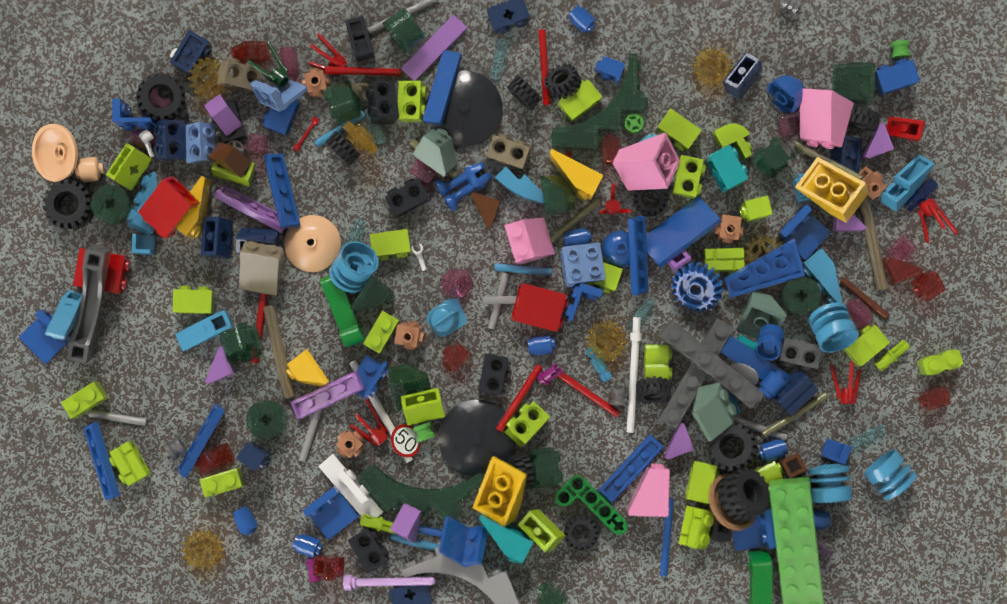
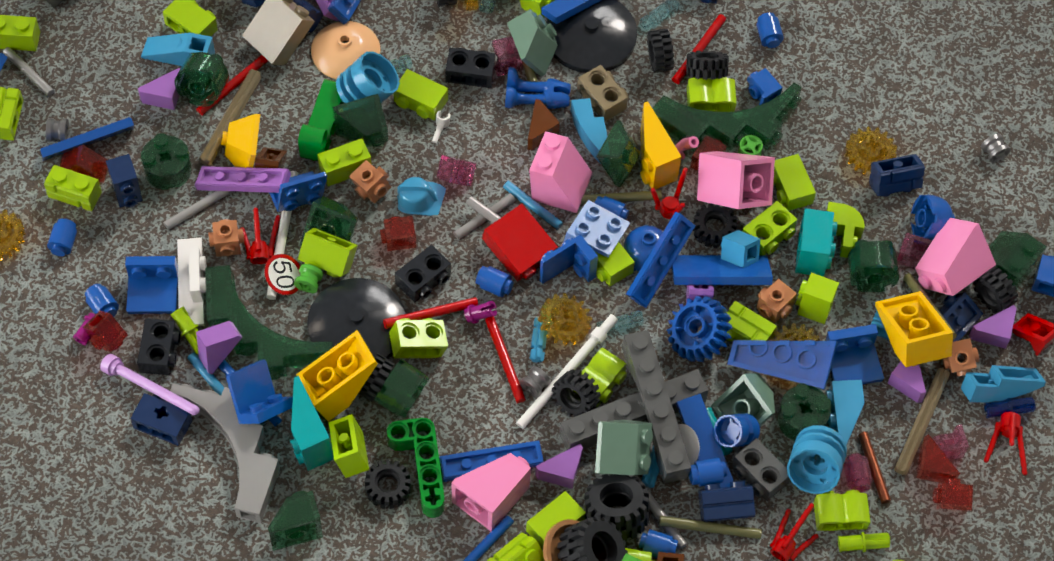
camera: 30 degrees right, 25 degrees down
(332, 365) = (270, 158): none -> reddish brown slope
(589, 155) = (685, 144): none -> bright pink arm
(682, 208) = (740, 248): none -> dark azure brick

